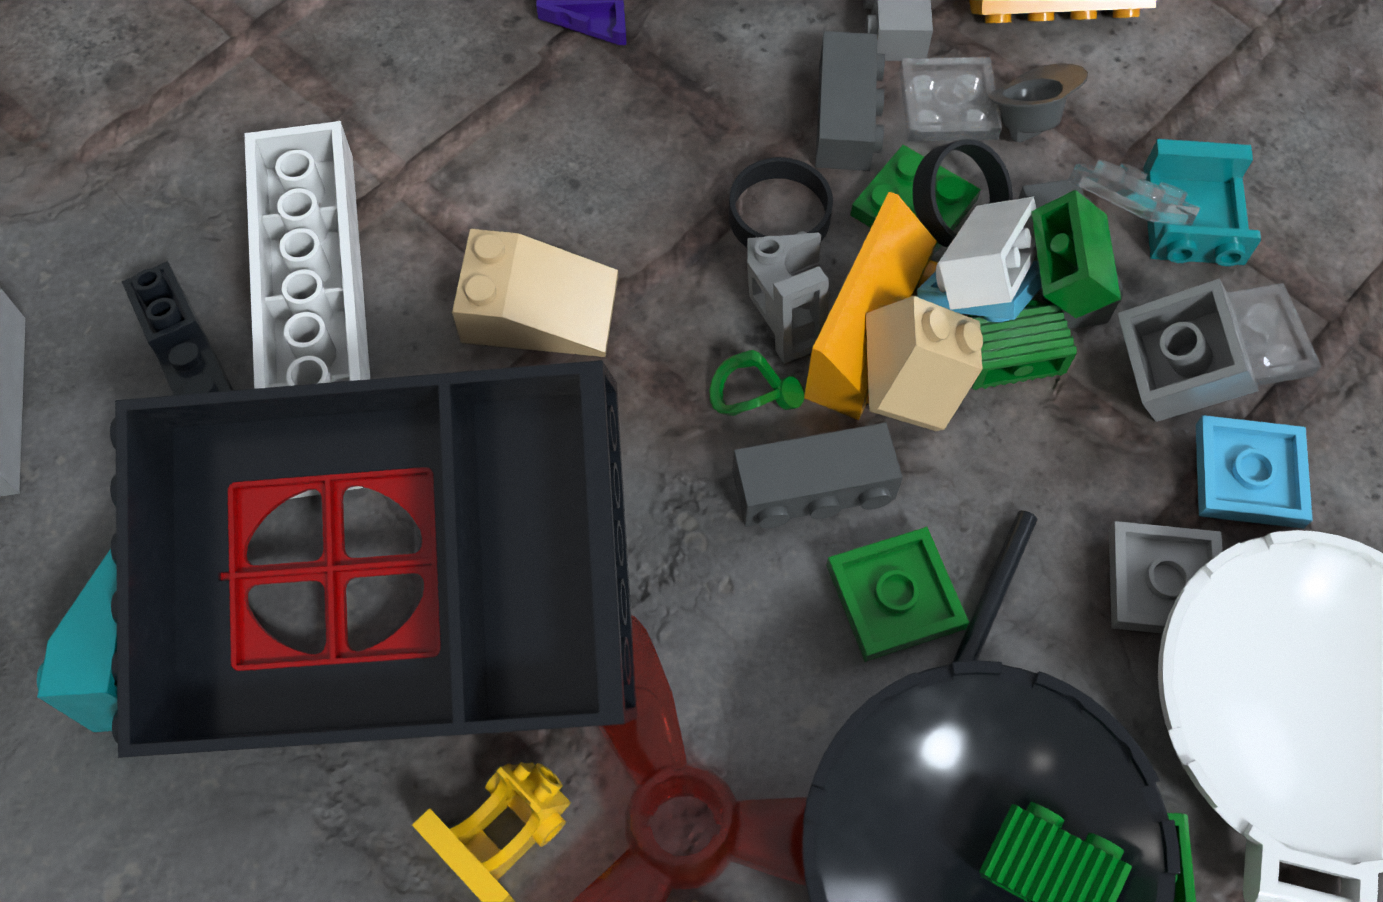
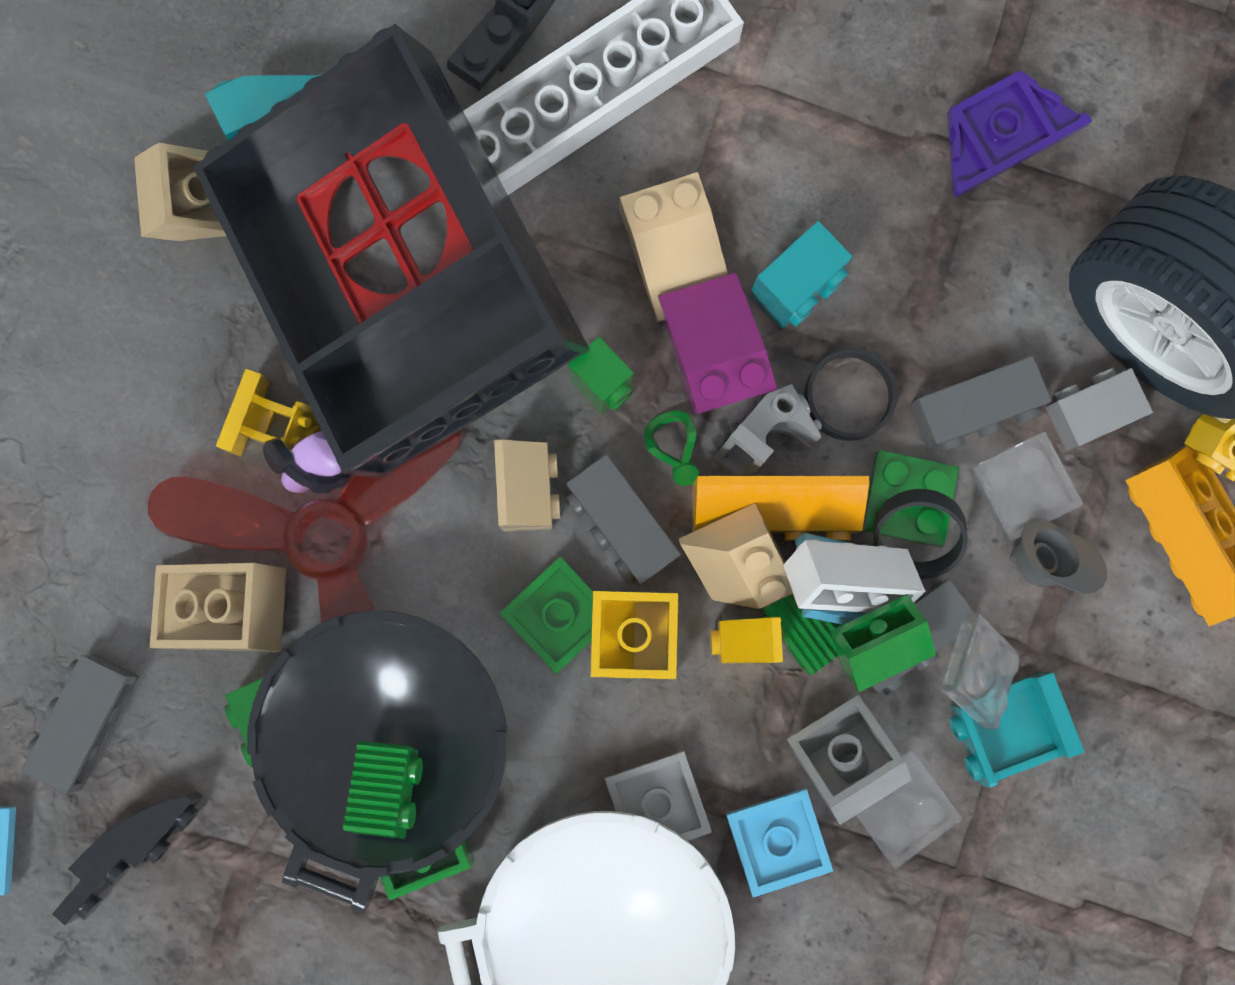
camera: 60 degrees right, 20 degrees up
(138, 816) = (171, 195): none -> tan slope
(585, 781) = (307, 466): none -> cap
(638, 186) = (800, 275): none -> teal brick
(649, 416) = (602, 377): none -> green brick
(666, 298) = (716, 343): none -> magenta slope
(726, 560) = (525, 485): none -> tan slope
(962, 503) = (634, 635): none -> yellow slope
(996, 587) = (583, 684): black bar -> none
(1020, 382) = (747, 641): none -> yellow slope

